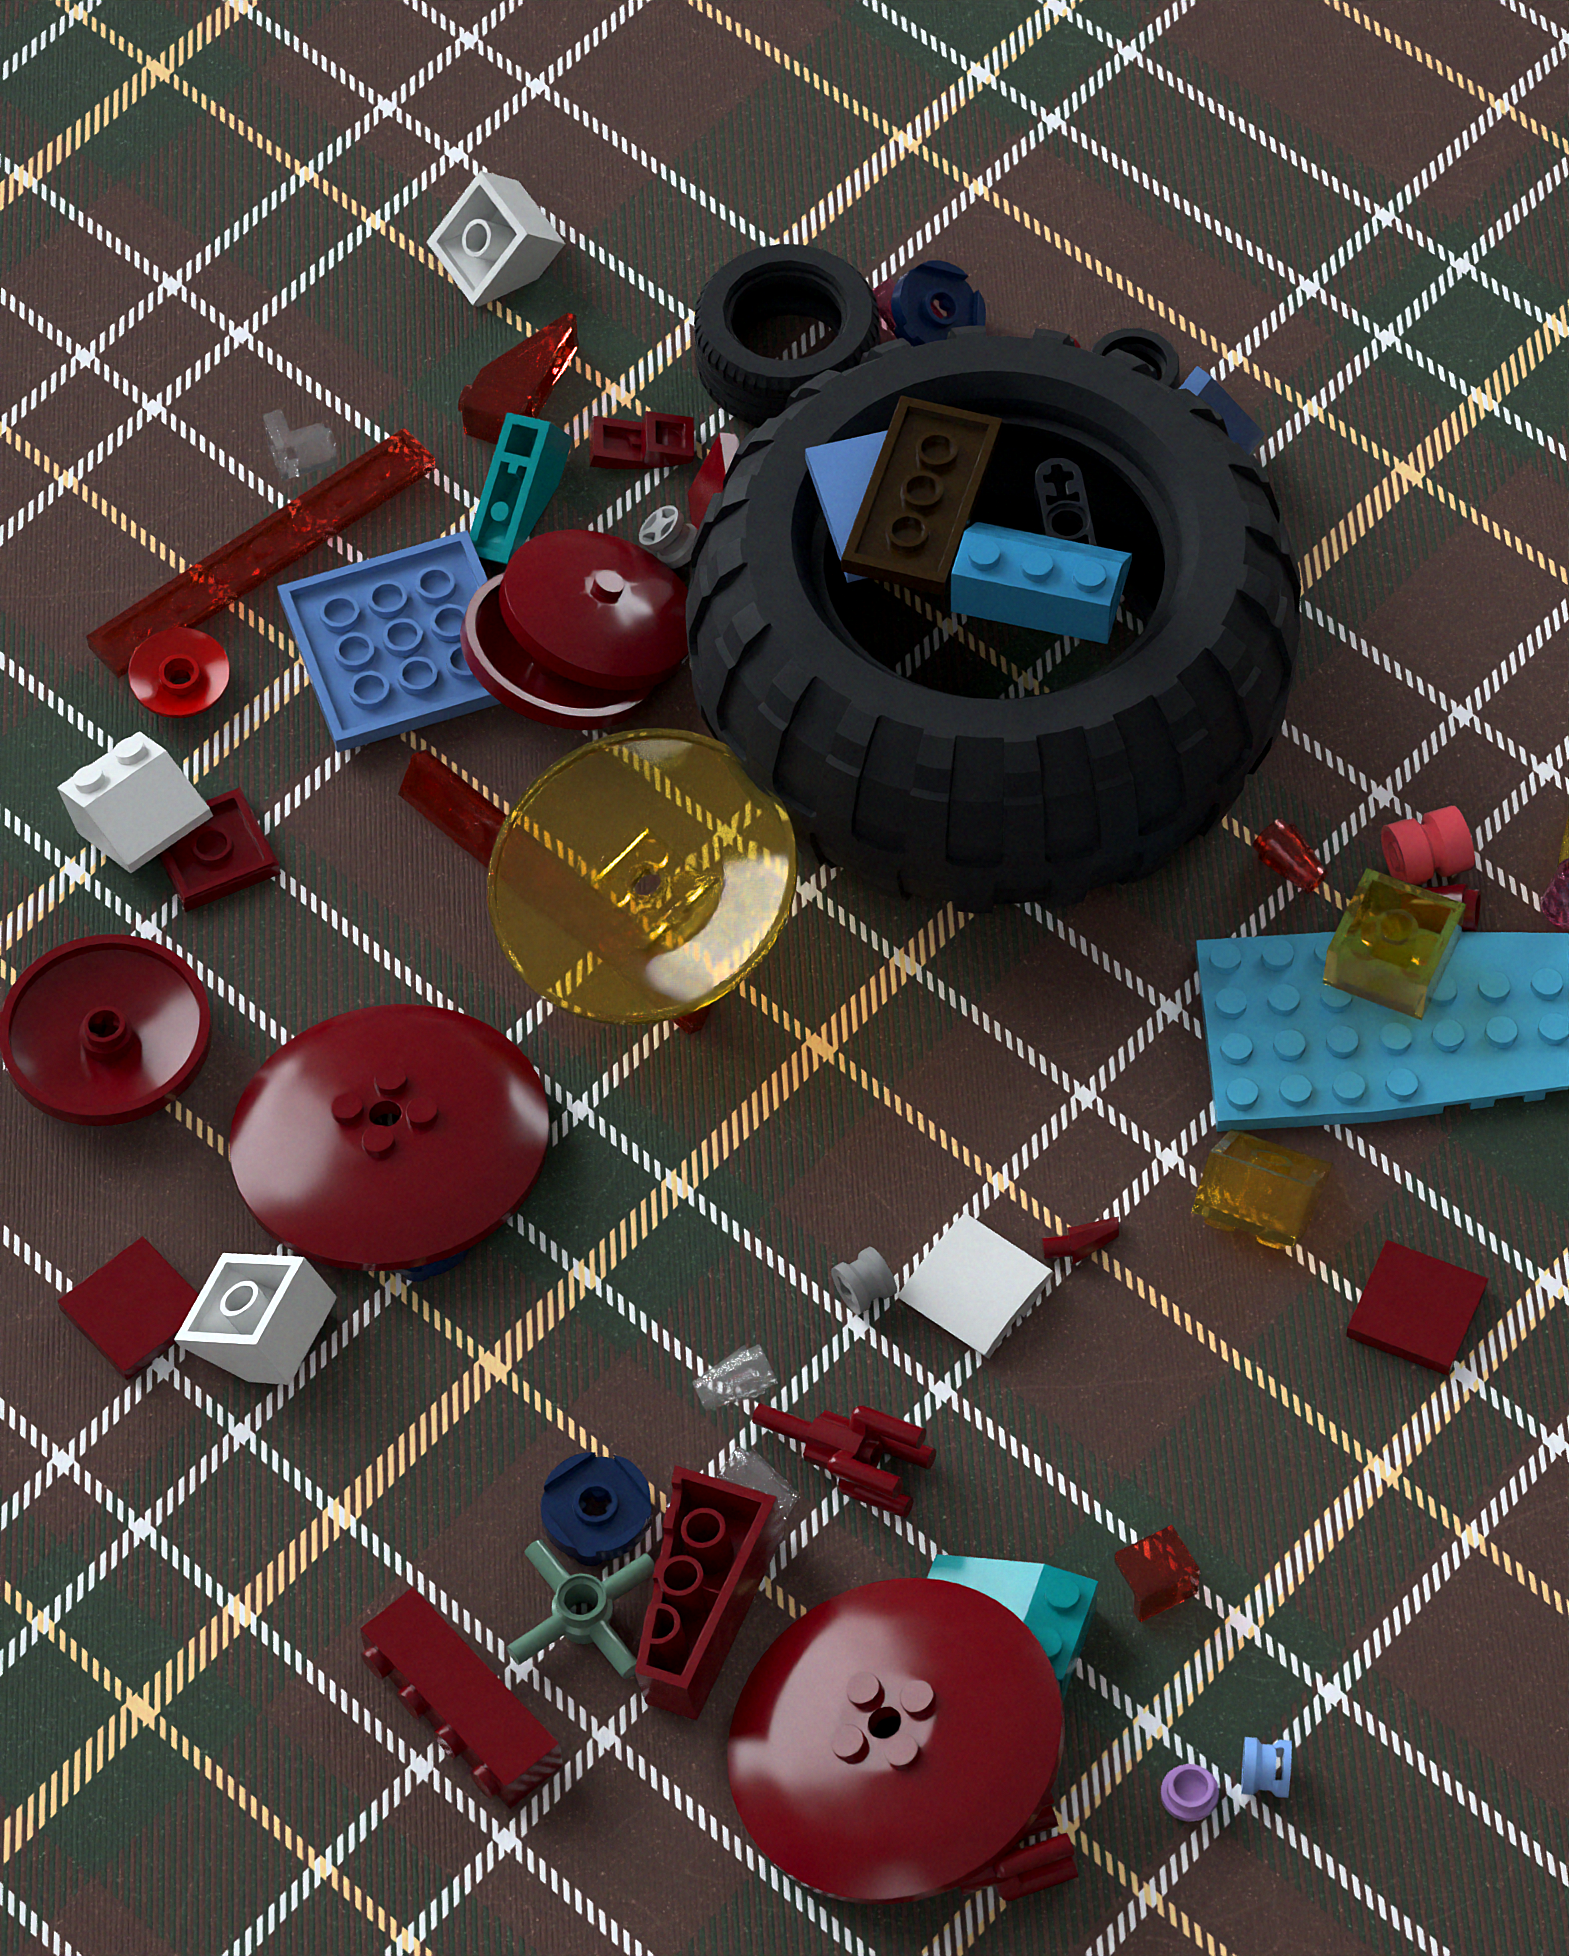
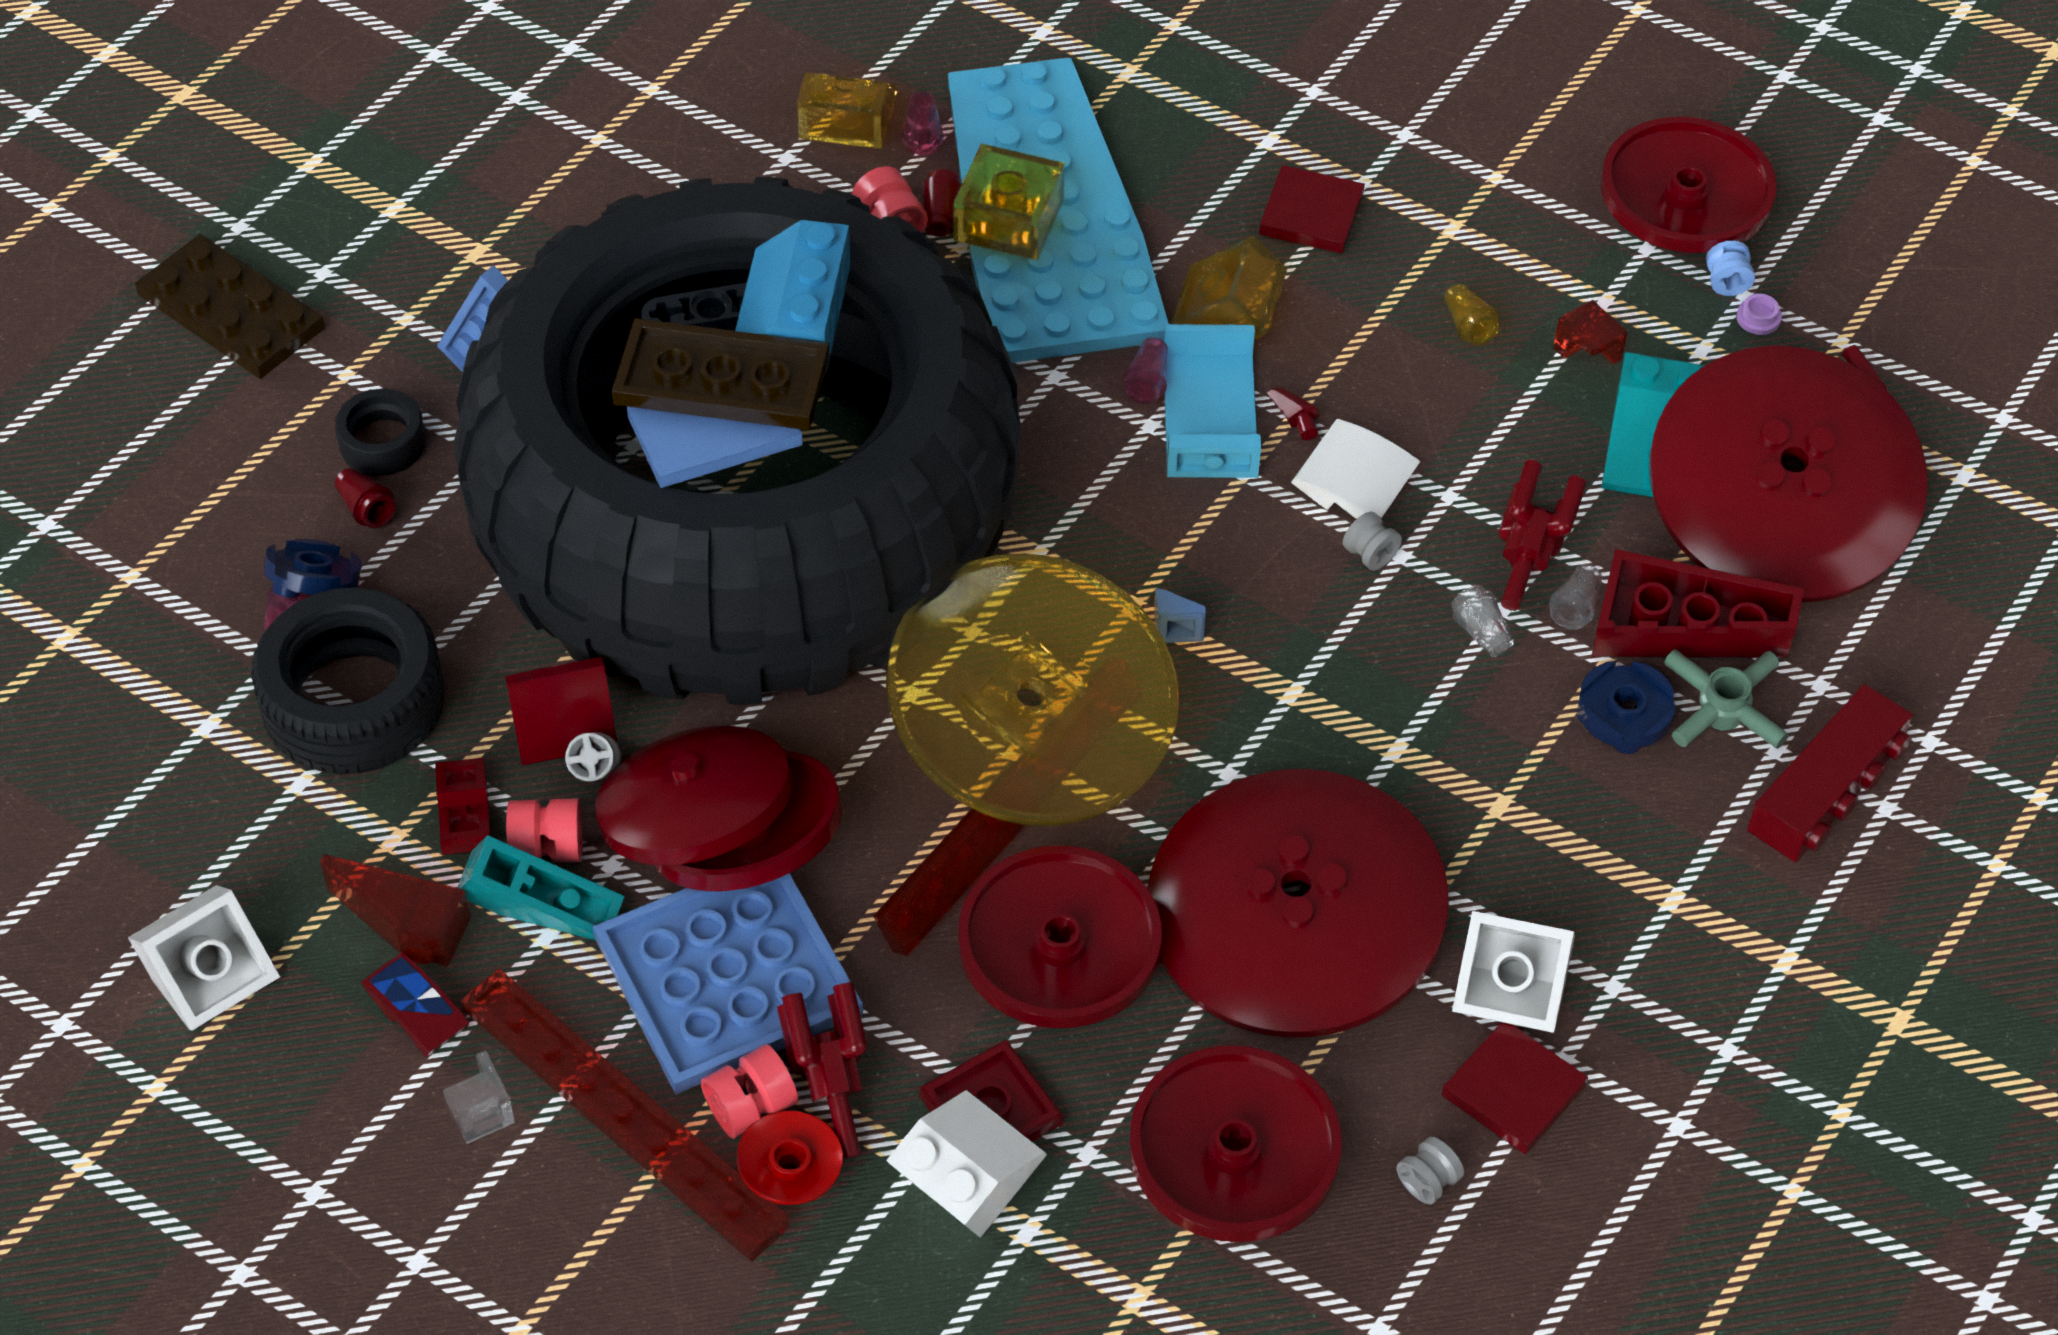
camera: 100 degrees left, 5 degrees down
(46, 1204) = (1430, 1170): none -> light grey wheel
(255, 643) = (765, 1081): none -> coral wheel
(270, 699) = (828, 1057): none -> dark red plant
(374, 908) = (1059, 936): none -> dark red dish
(409, 399) = (415, 1003): none -> slope
(585, 491) = (546, 830): none -> coral wheel
(781, 1065) = (1178, 617): none -> medium blue slope
(1097, 1154) = (1211, 402): none -> medium azure panel
(1151, 1088) = (1147, 373): none -> clear pink cone
(1214, 1449) = (1471, 315): none -> clear yellow cone
(1336, 254) = (230, 306): none -> dark brown plate
(1407, 1736) = (1688, 184): none -> dark red dish

